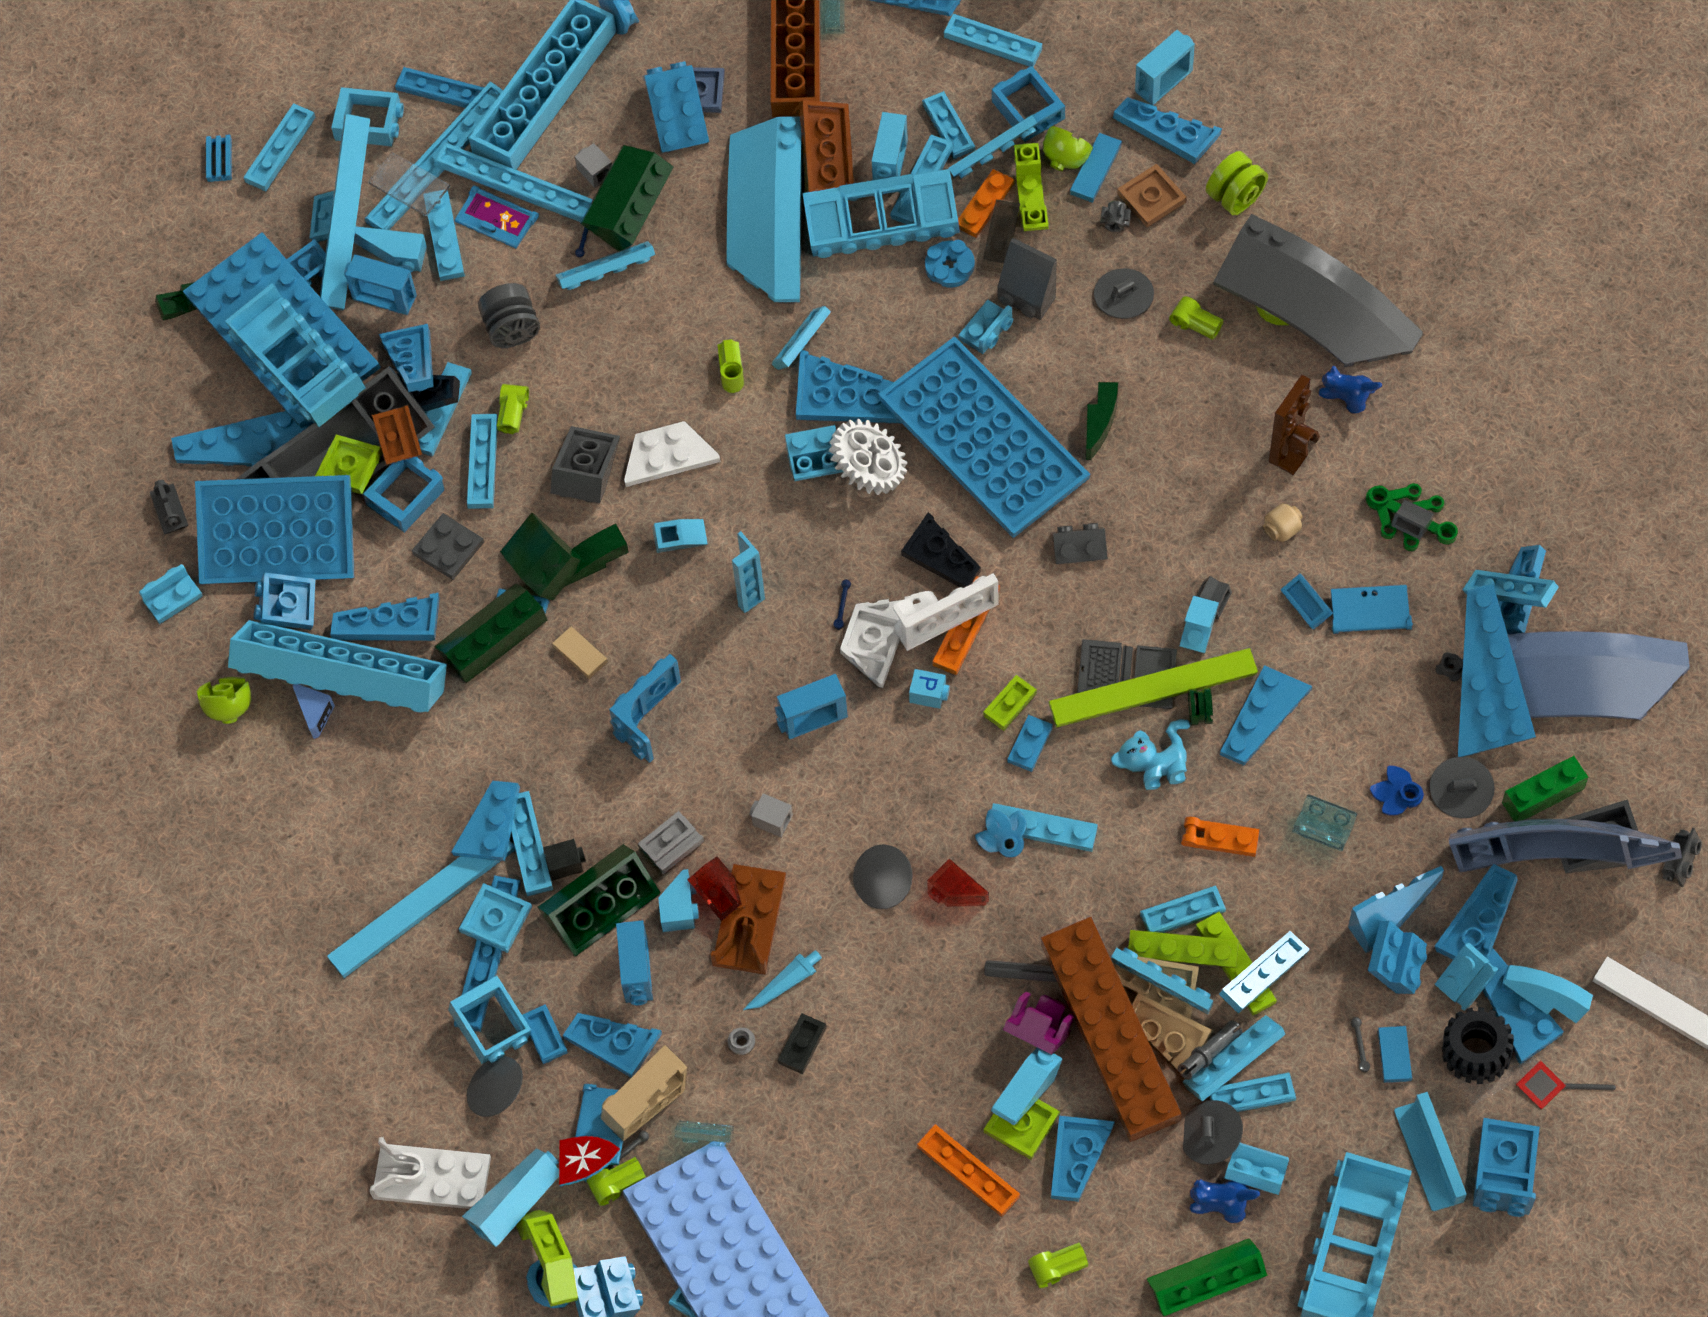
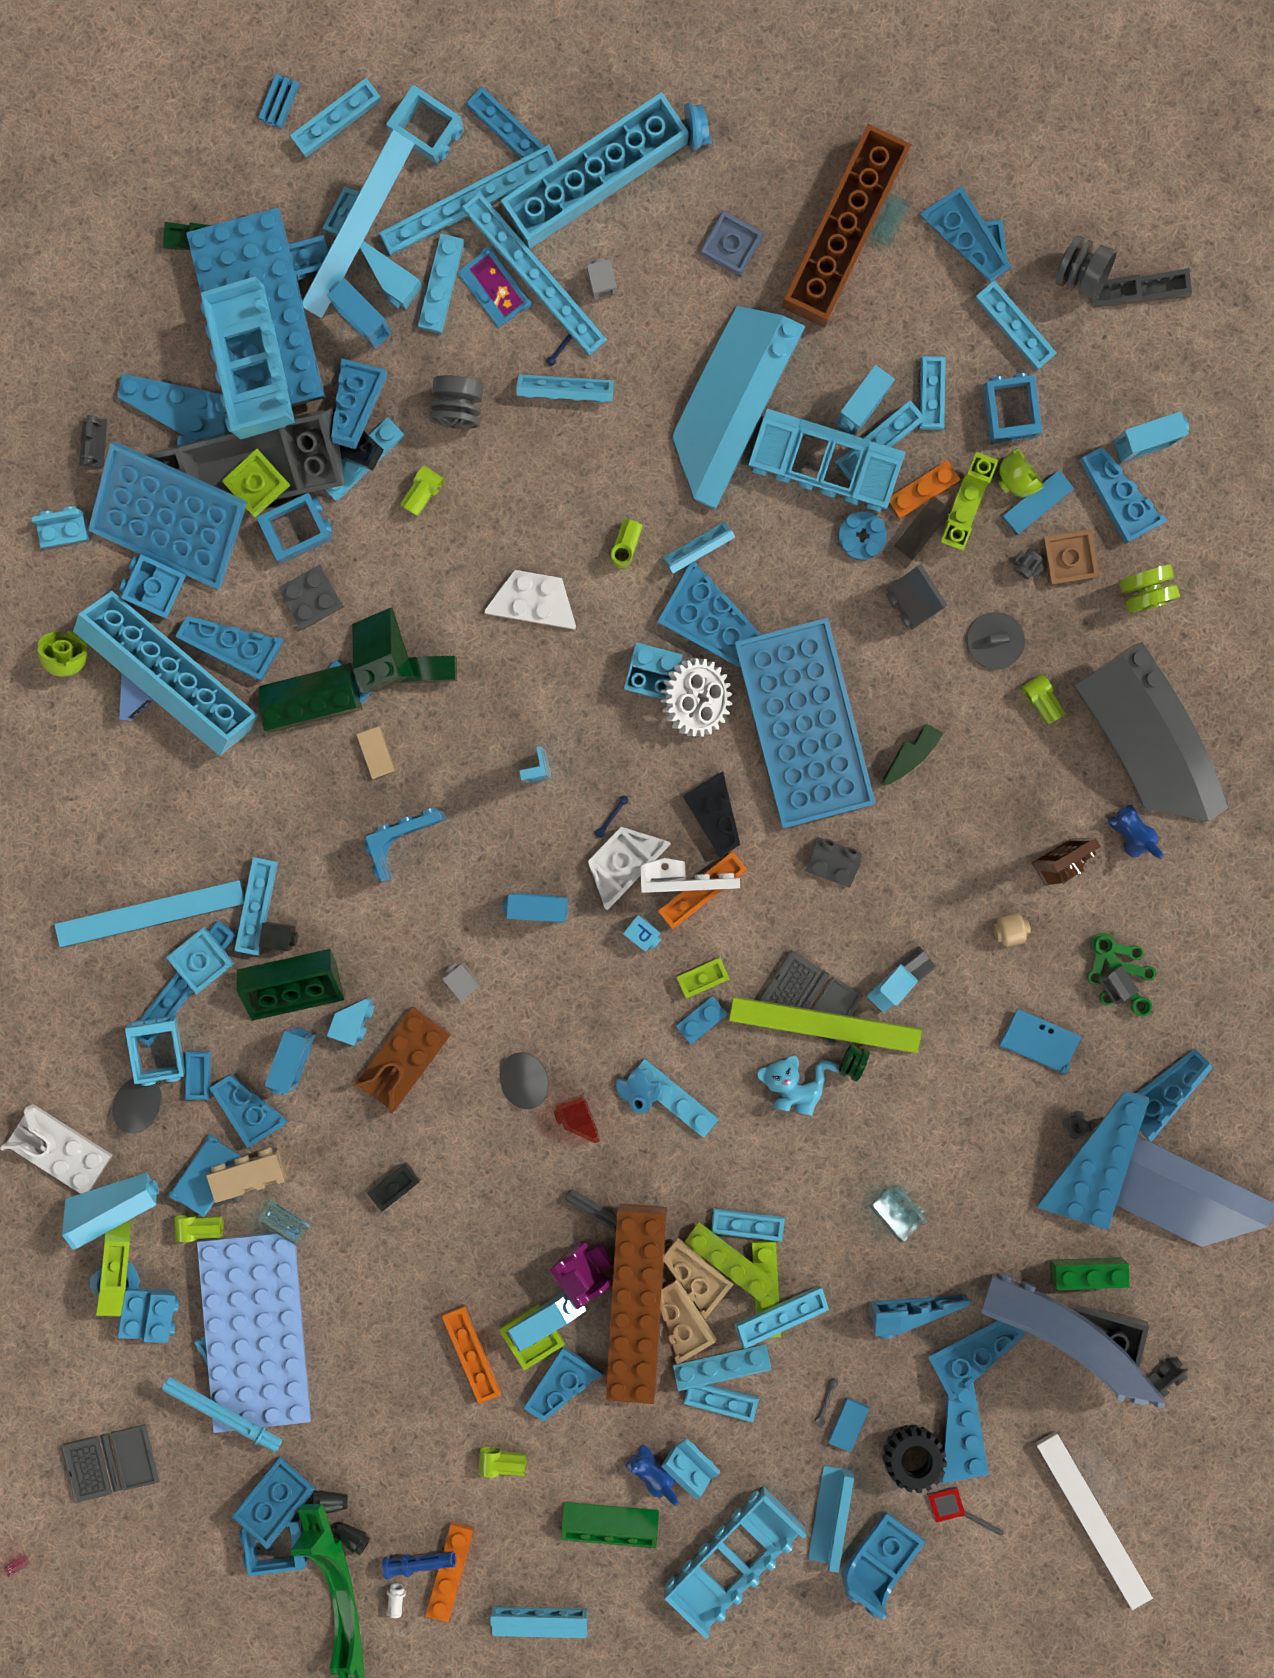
camera: 20 degrees right, 25 degrees up
(397, 435) = (305, 479): dark orange plate -> none
(409, 184) = (431, 217): clear piece -> none
(482, 461) = (374, 530): medium azure plate -> none
(491, 824) = (231, 878): dark azure wing -> none
(584, 464) = (458, 577): dark grey slope -> none
(584, 1157) = (175, 1206): red shield -> none
(626, 196) = (614, 330): dark green slope -> none
(670, 842) = (370, 963): light grey plate -> none
(676, 107) = (700, 253): dark azure bracket -> none
(679, 534) = (505, 688): medium azure slope -> none
(717, 888) = (386, 1025): clear red slope -> none
(741, 1033) = (342, 1164): light grey plate -> none
(793, 974) = (414, 1123): medium azure bar -> none
(825, 144) = (811, 369): dark orange plate -> none
(986, 326) = (861, 614): medium azure bracket -> none
(1003, 142) = (948, 444): medium azure plate -> none
(1173, 985) = (693, 1279): medium azure plate -> none
(1203, 1055) = (697, 1361): dark grey pin -> none
(1212, 1132) = (673, 1419): dark grey shield -> none
(1220, 837) = (811, 1178): orange plate -> none
(1266, 707) = (904, 1087): dark azure wing -> none
(1306, 601) = (992, 1009): dark azure tile -> none
(1393, 791) = (969, 1208): blue plate -> none
(1397, 958) = (892, 1359): dark azure plate -> none
(1462, 787) = (1026, 1232): dark grey shield -> none
(1466, 976) = (937, 1399): medium azure plate -> none
(1515, 588) = (1163, 1096): medium azure plate -> none
(1548, 991) = (994, 1442): medium azure slope -> none

